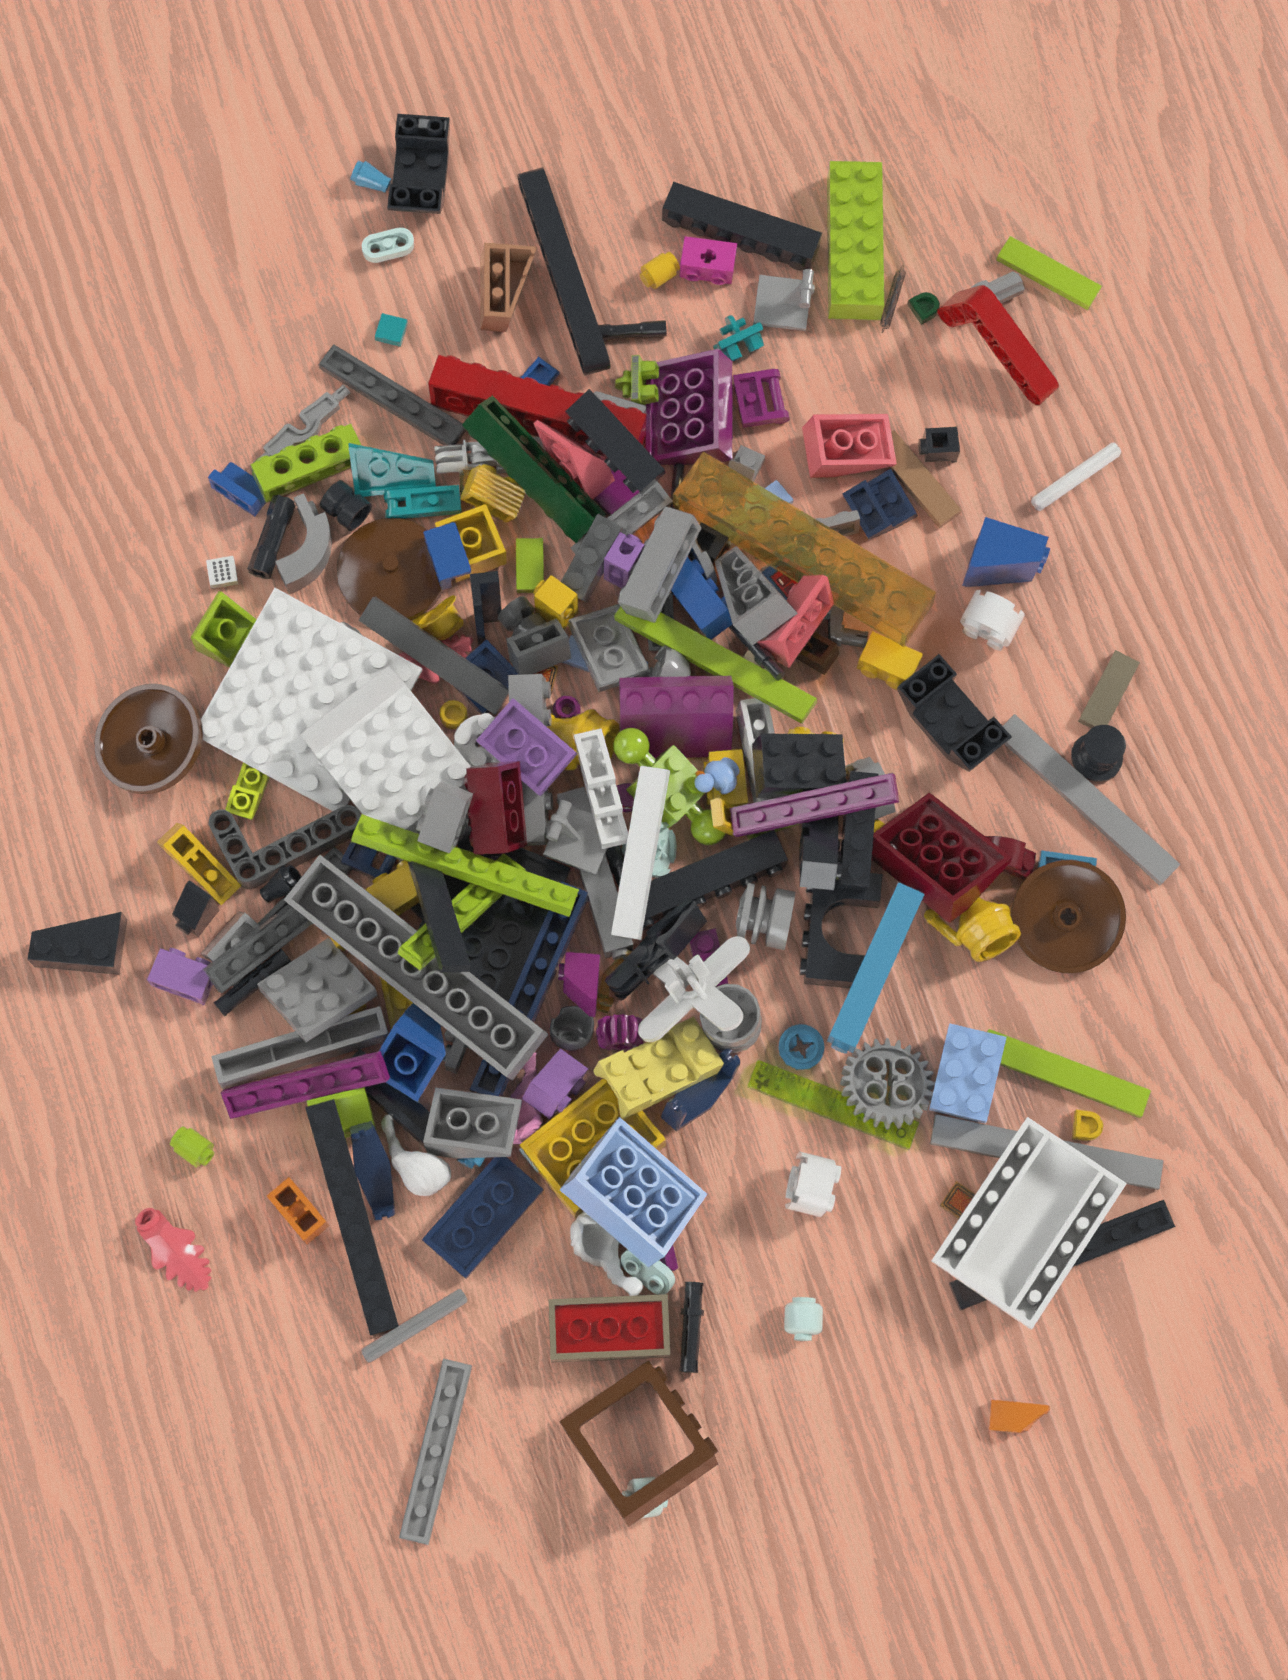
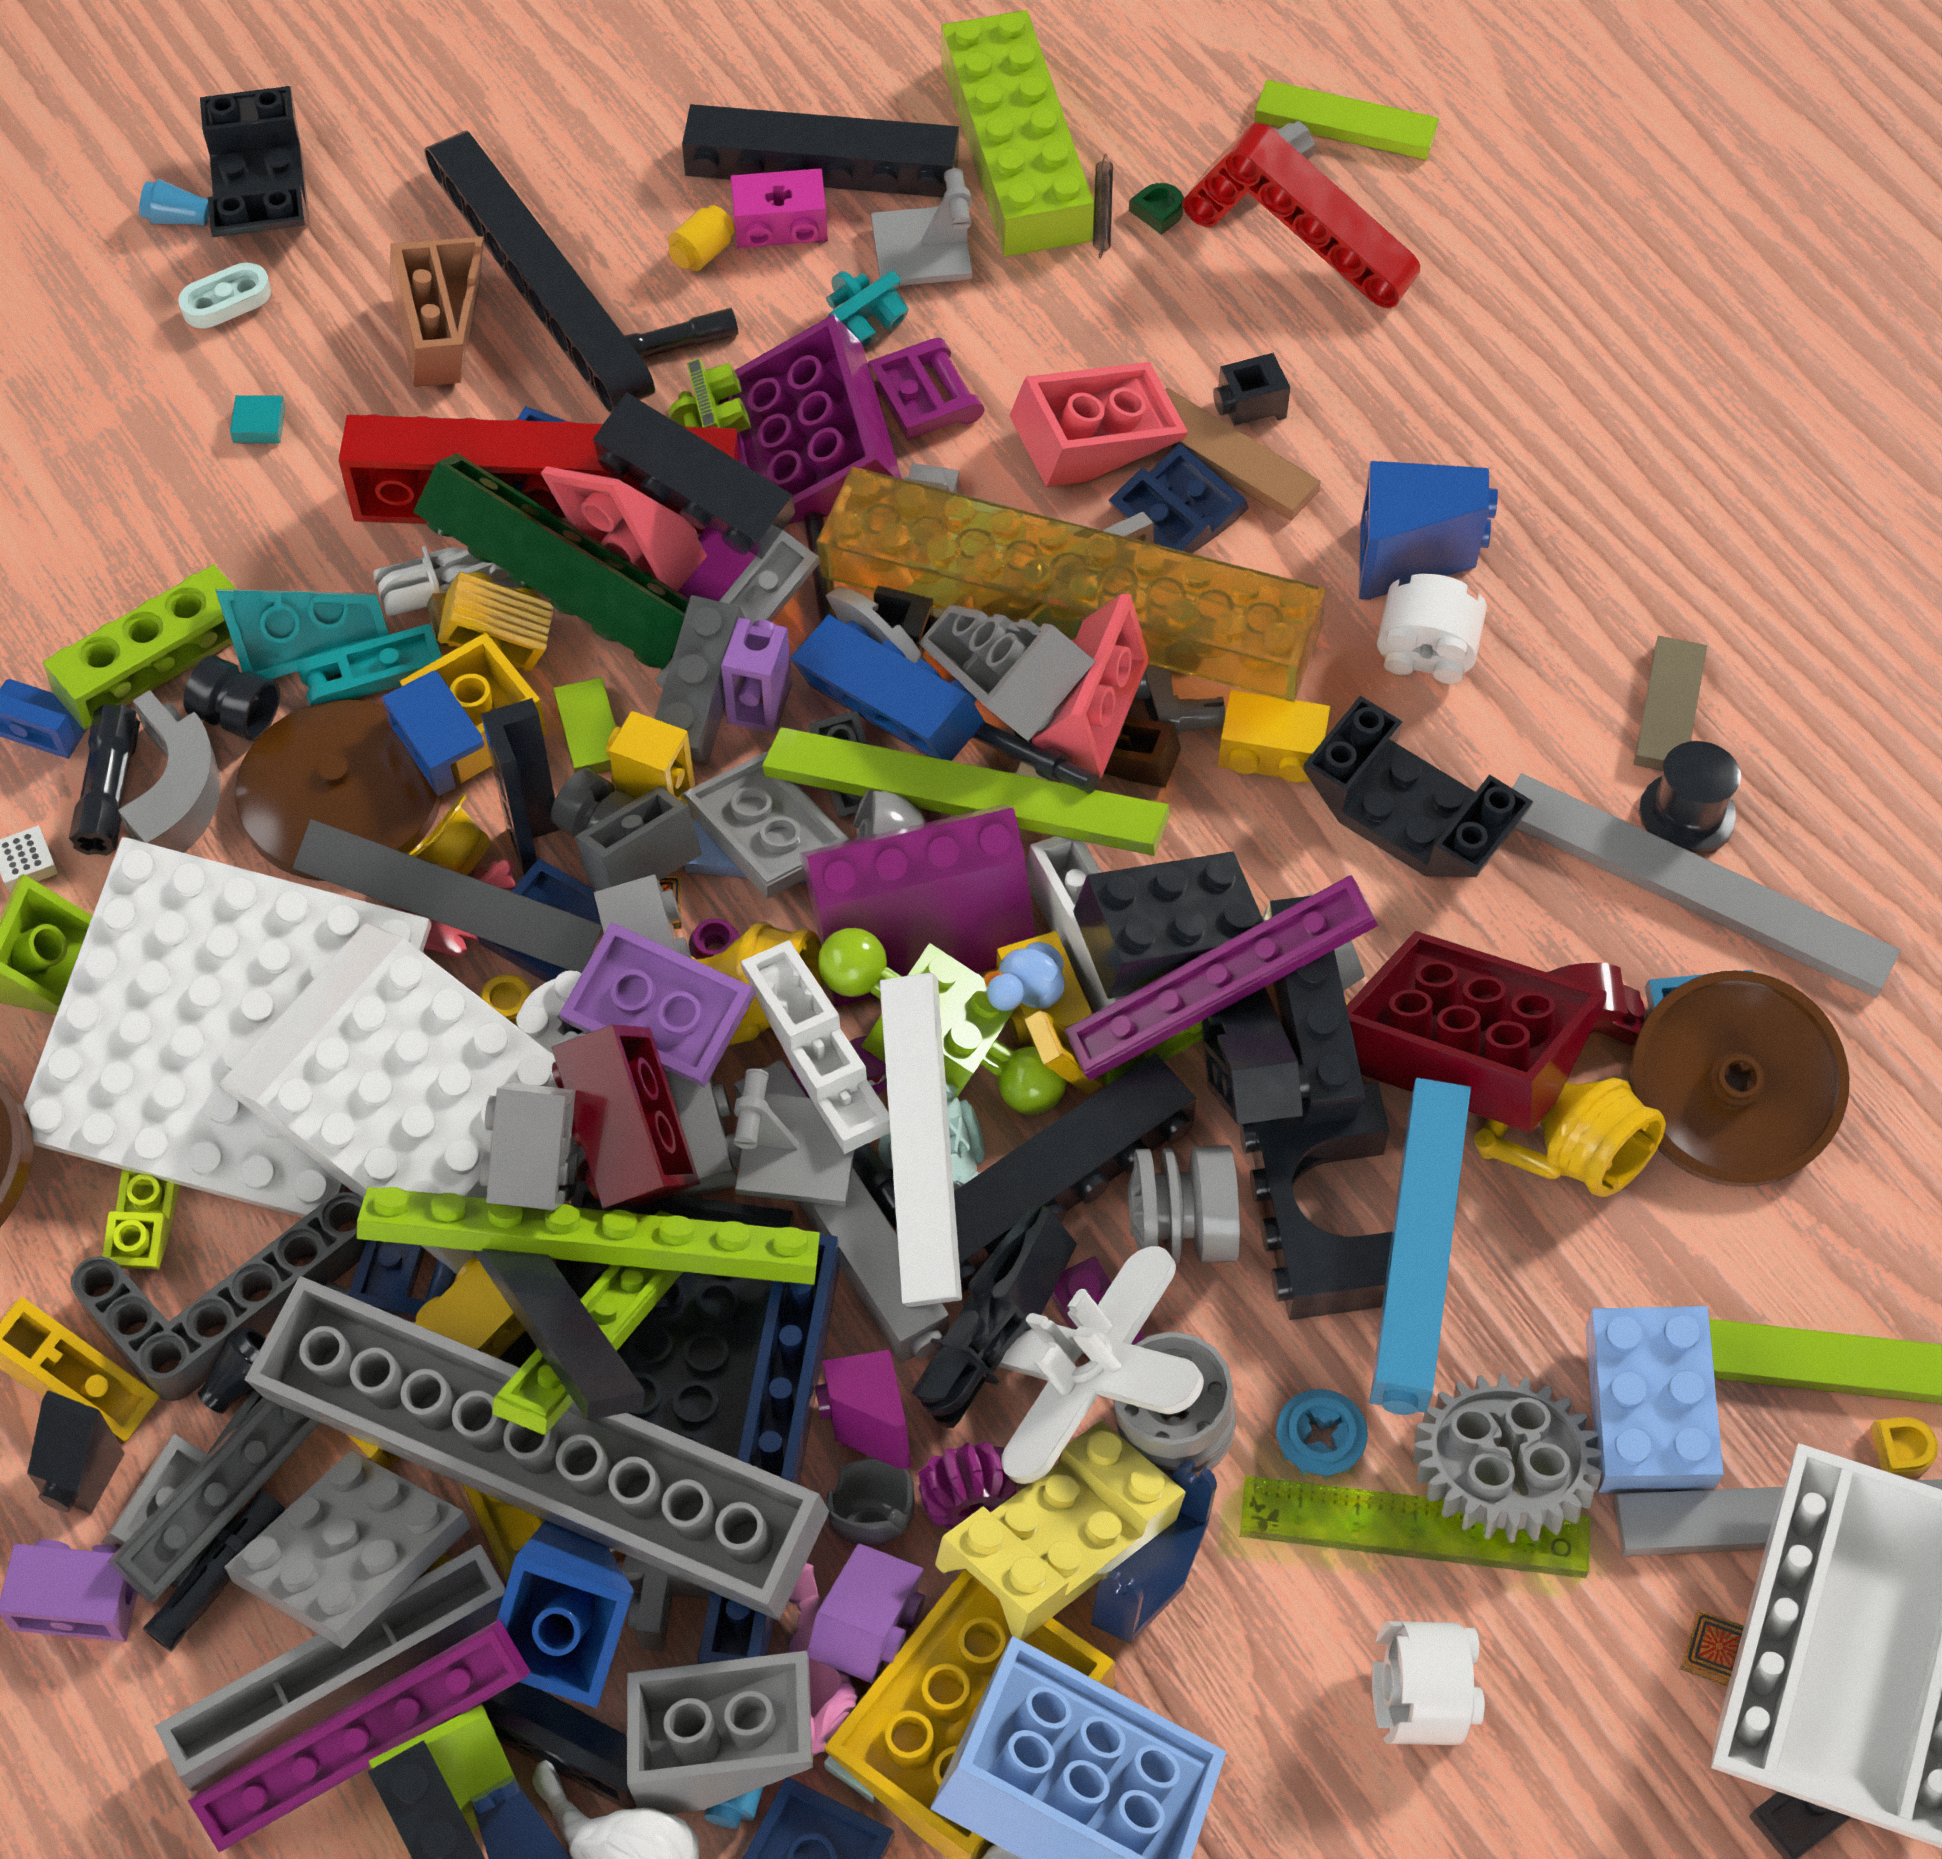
camera: 10 degrees left, 15 degrees down
(312, 417) = (142, 578): light grey piece -> none
(392, 396) = (278, 517): dark grey tile -> none
(604, 1001) = (920, 1438): clear yellow piece -> none
(659, 564) = (822, 657): light grey brick -> none
(1076, 476) = (1494, 394): white axle -> none

